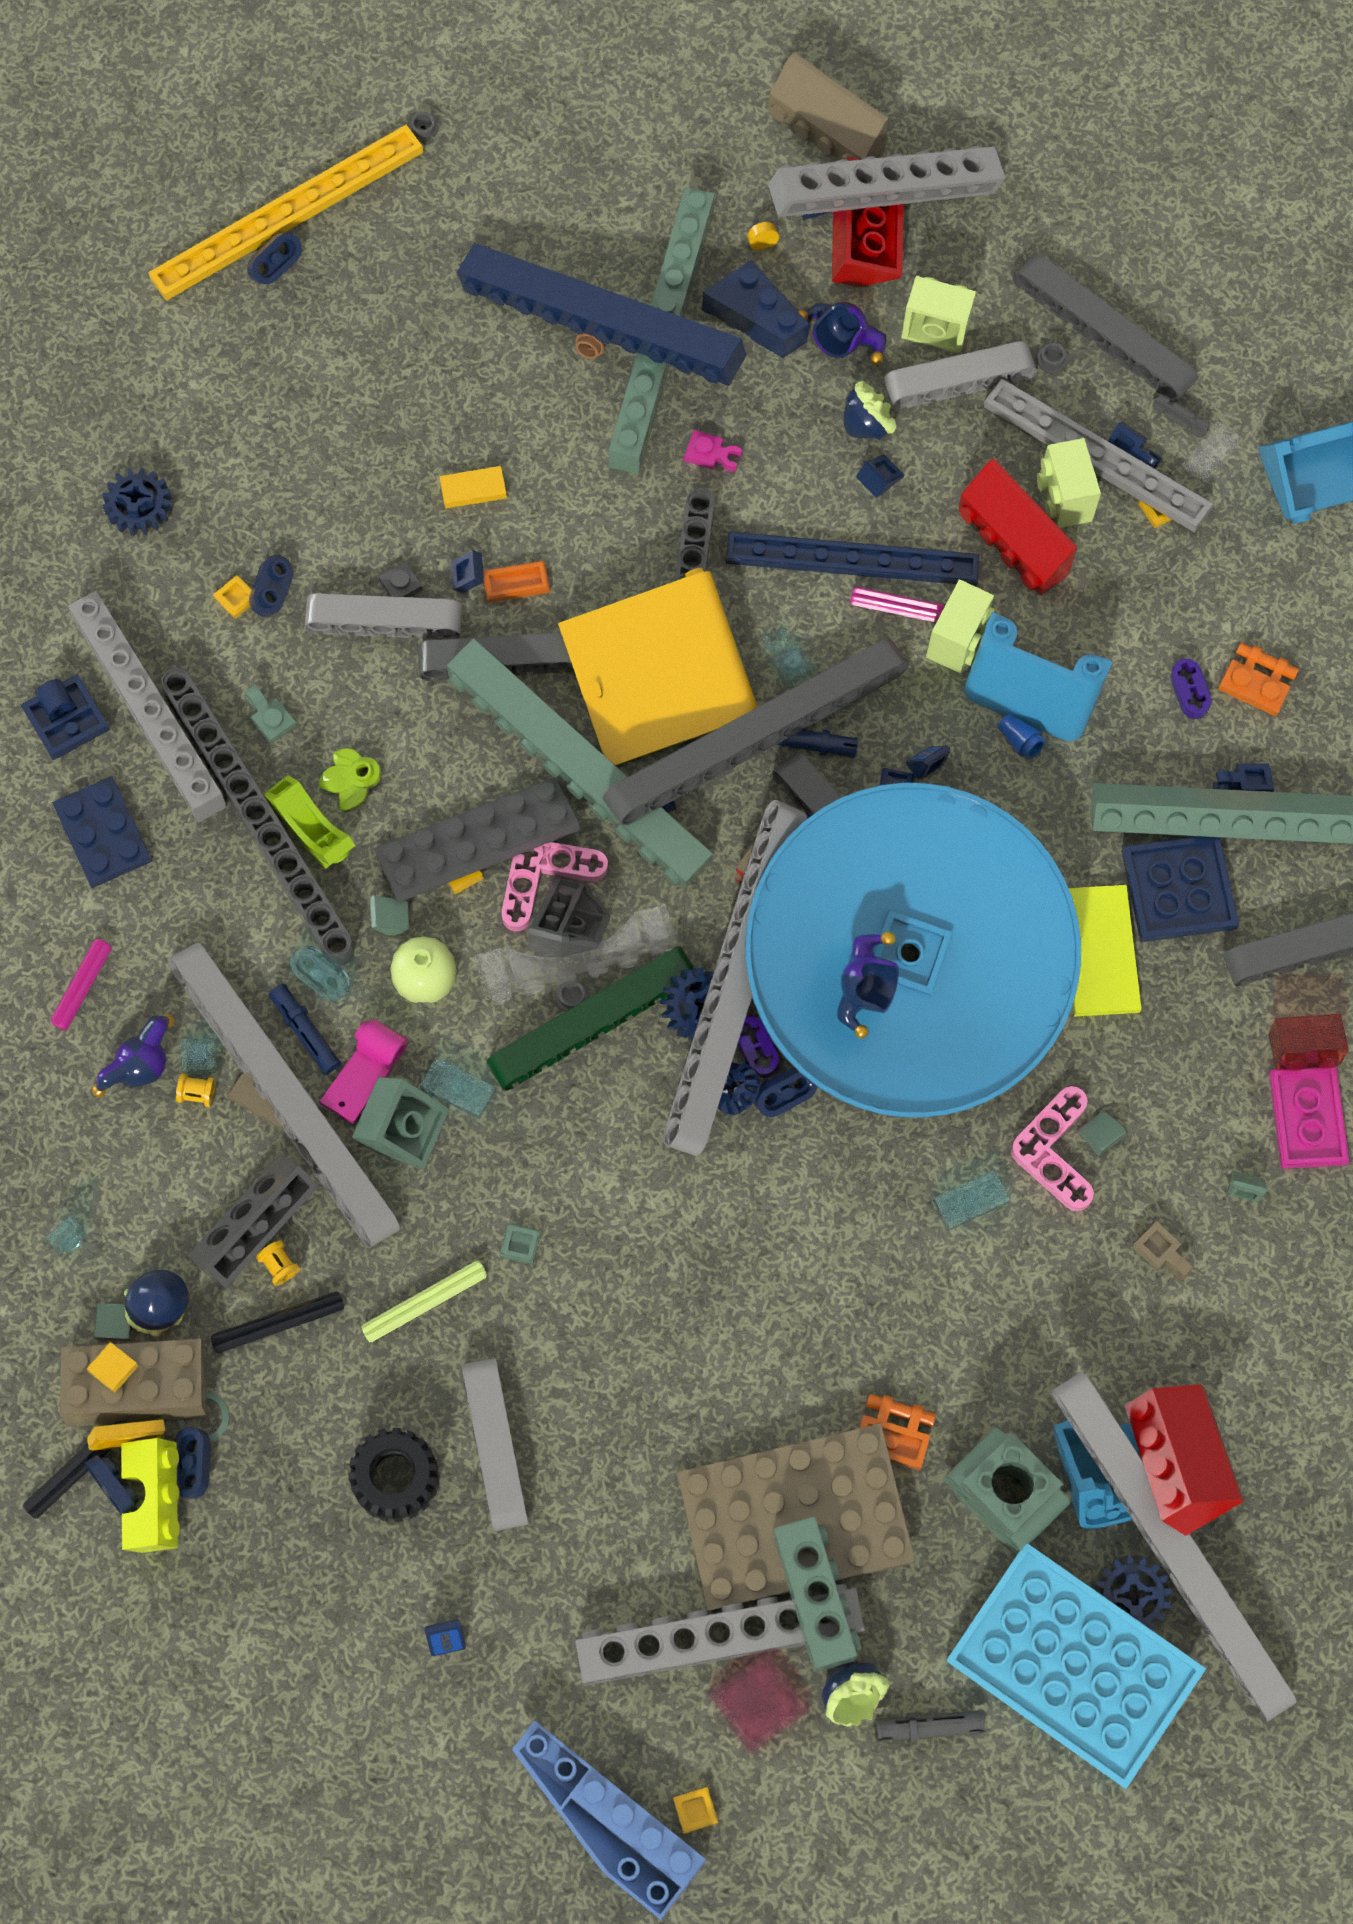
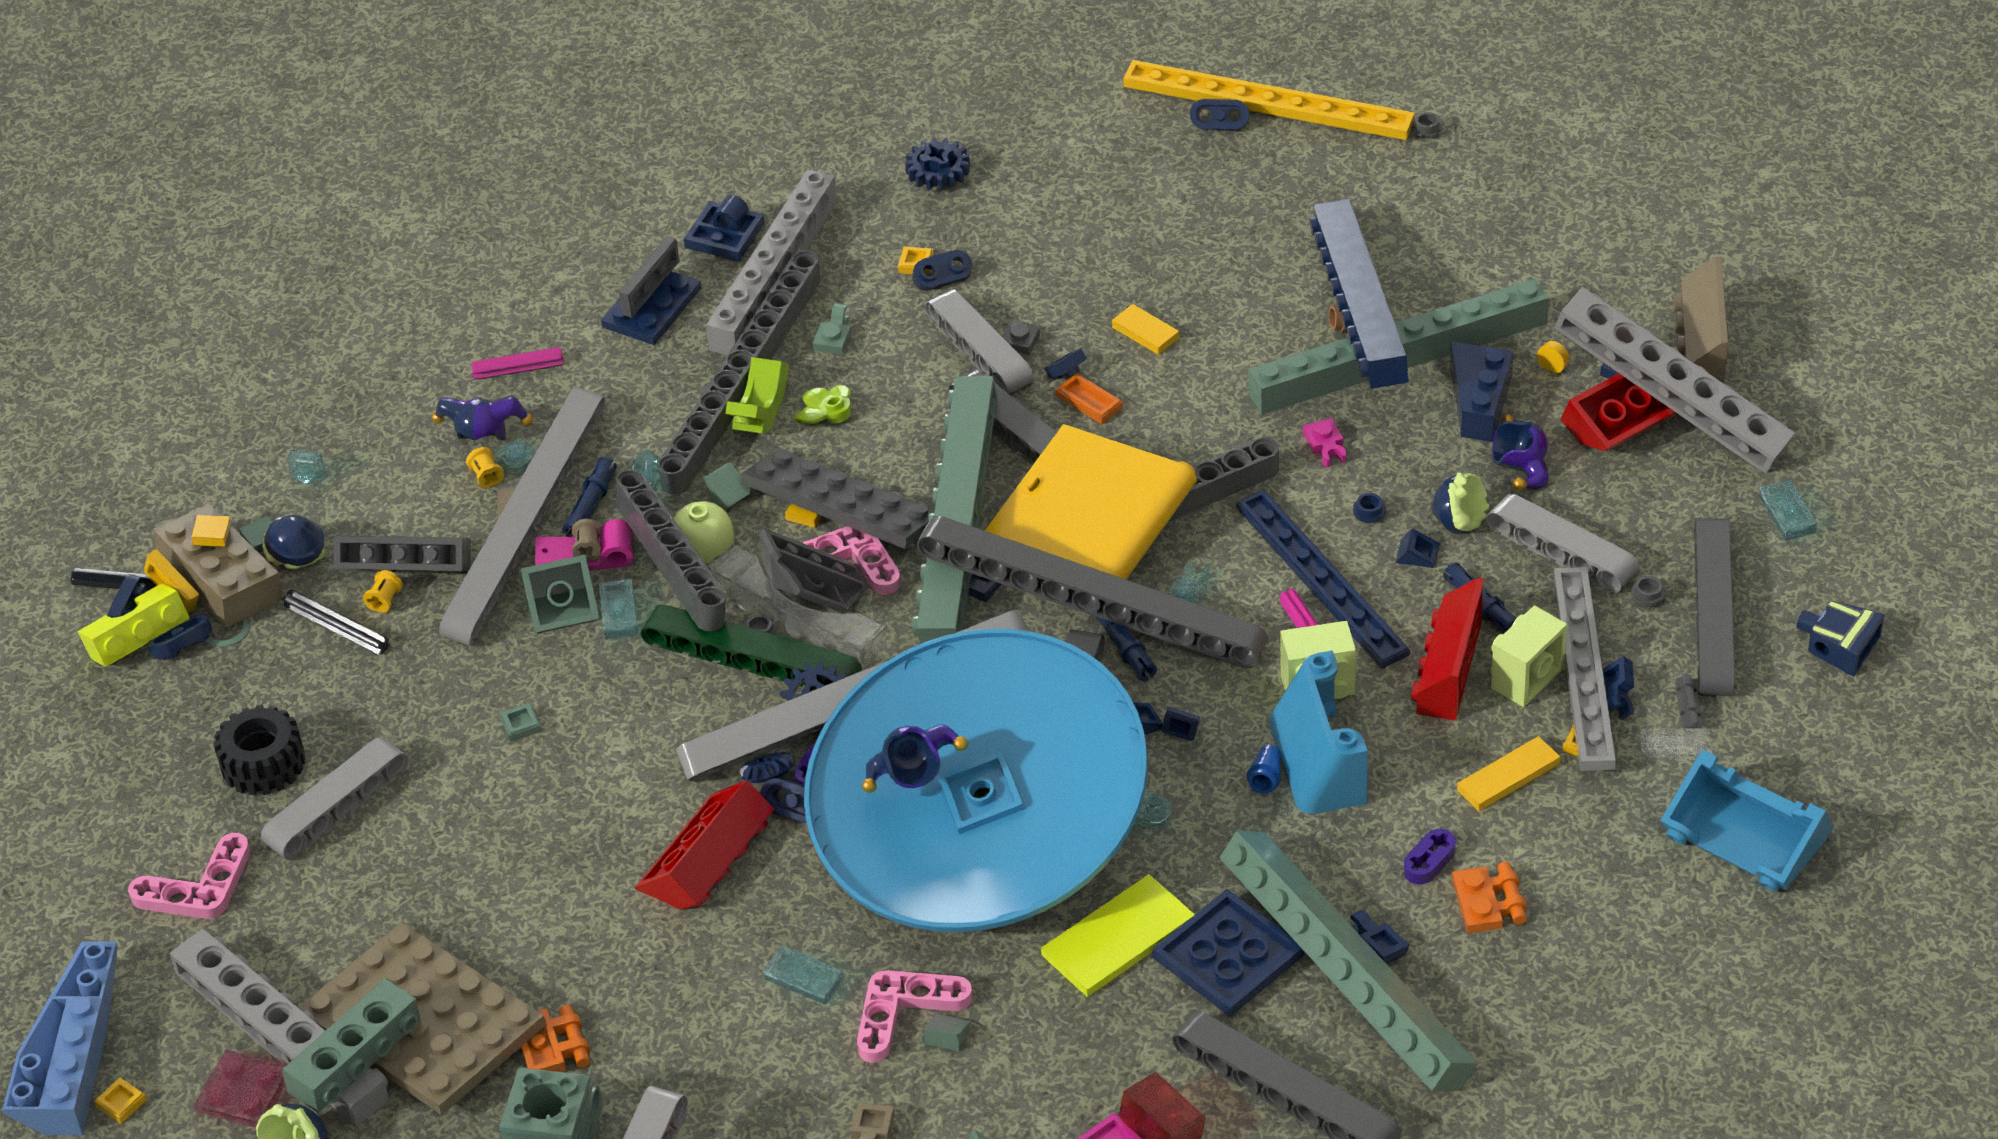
camera: 60 degrees right, 25 degrees down
(88, 814) = (649, 276): none -> dark grey tile
(364, 1064) = (586, 539): none -> dark tan bush
(424, 1301) = (423, 693): yellowish green axle -> none
(435, 998) = (670, 550): none -> dark grey beam
(445, 1637) = (151, 858): slope -> none
(511, 1605) = (205, 890): none -> bright pink beam
(781, 1189) = (707, 847): none -> red slope
(814, 467) = (1369, 508): none -> dark blue plate
(938, 314) = (1595, 488): yellowish green brick -> none
(962, 468) = (1492, 606): none -> dark blue pin
(1050, 209) = (1788, 510): none -> clear light blue plate
(1152, 579) = (1508, 773): none -> yellow tile
(1202, 271) = (1842, 634): none -> dark blue torso

